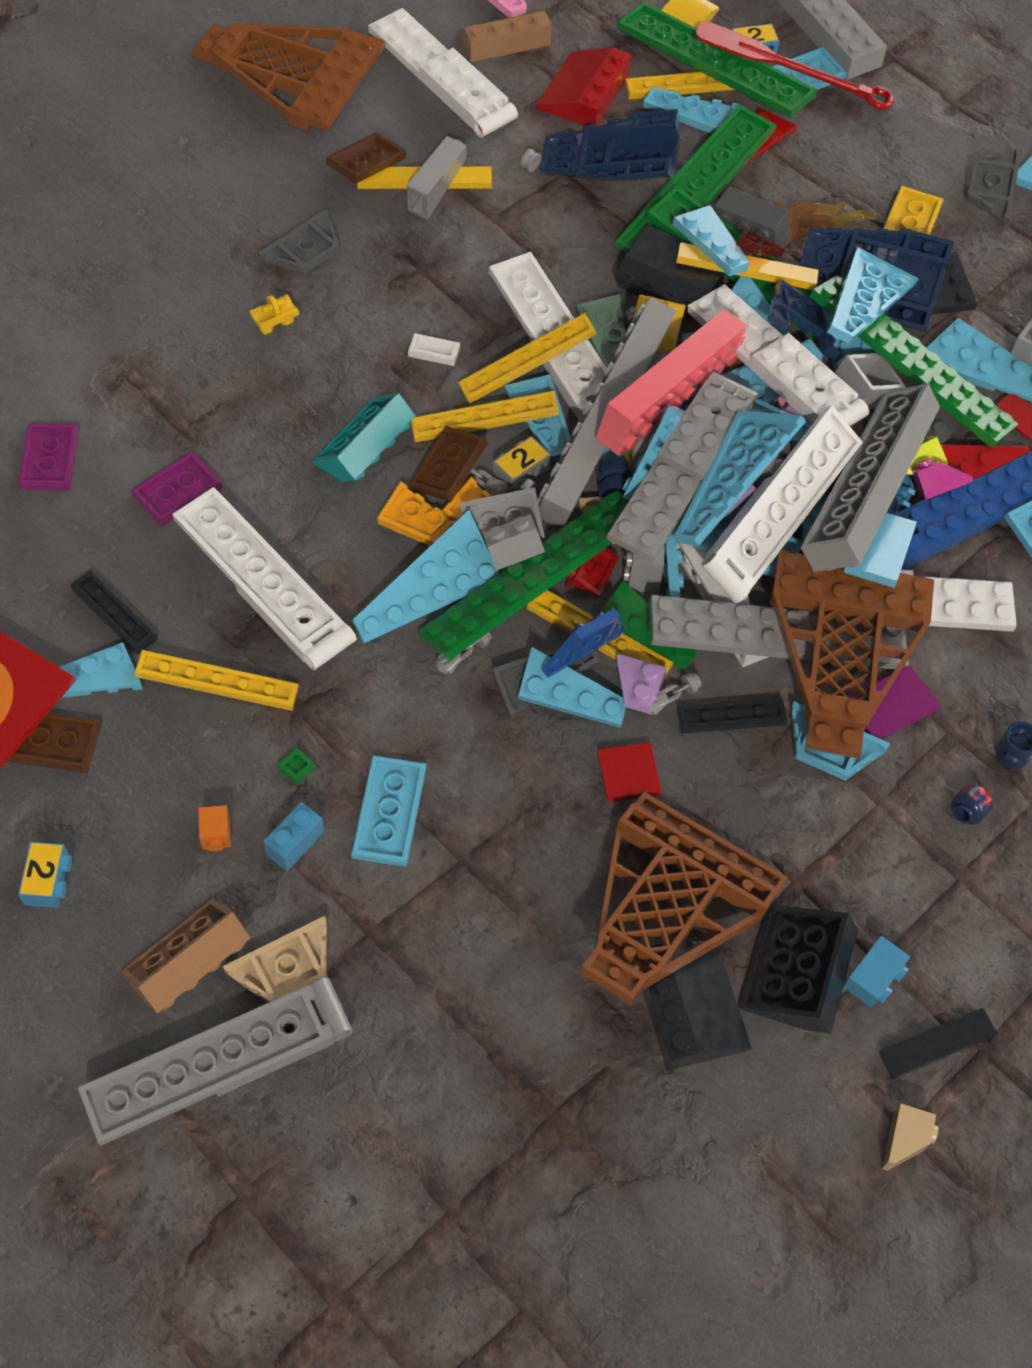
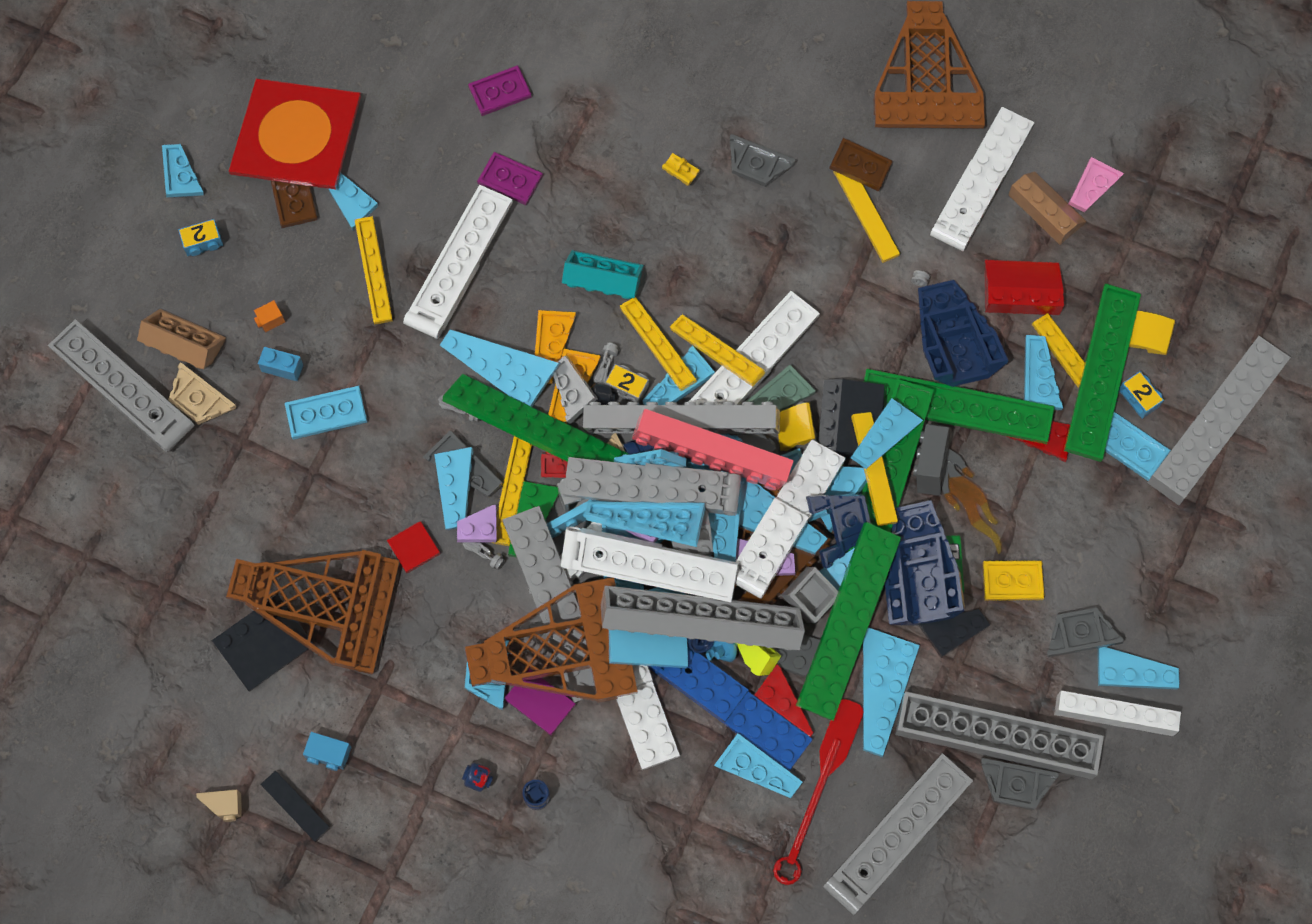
camera: 70 degrees right, 10 degrees up
(114, 612) = (399, 187): black tile -> none
(296, 766) = (334, 344): green tile -> none
(434, 349) = (706, 286): white tile -> none
(435, 177) = (859, 218): light grey slope -> none
(448, 463) = (602, 336): reddish brown tile -> none
(513, 542) = (547, 402): light grey brick -> none
(585, 640) = (494, 482): blue wing -> none
(731, 715) = (484, 596): black tile -> none
(754, 244) = (898, 468): clear red wing -> none
(757, 51) = (1121, 396): red piece -> none
(800, 967) = (312, 702): black slope -> none
(866, 294) = (888, 563): medium azure wing -> none
(937, 478) = (742, 672): dark pink slope -> none

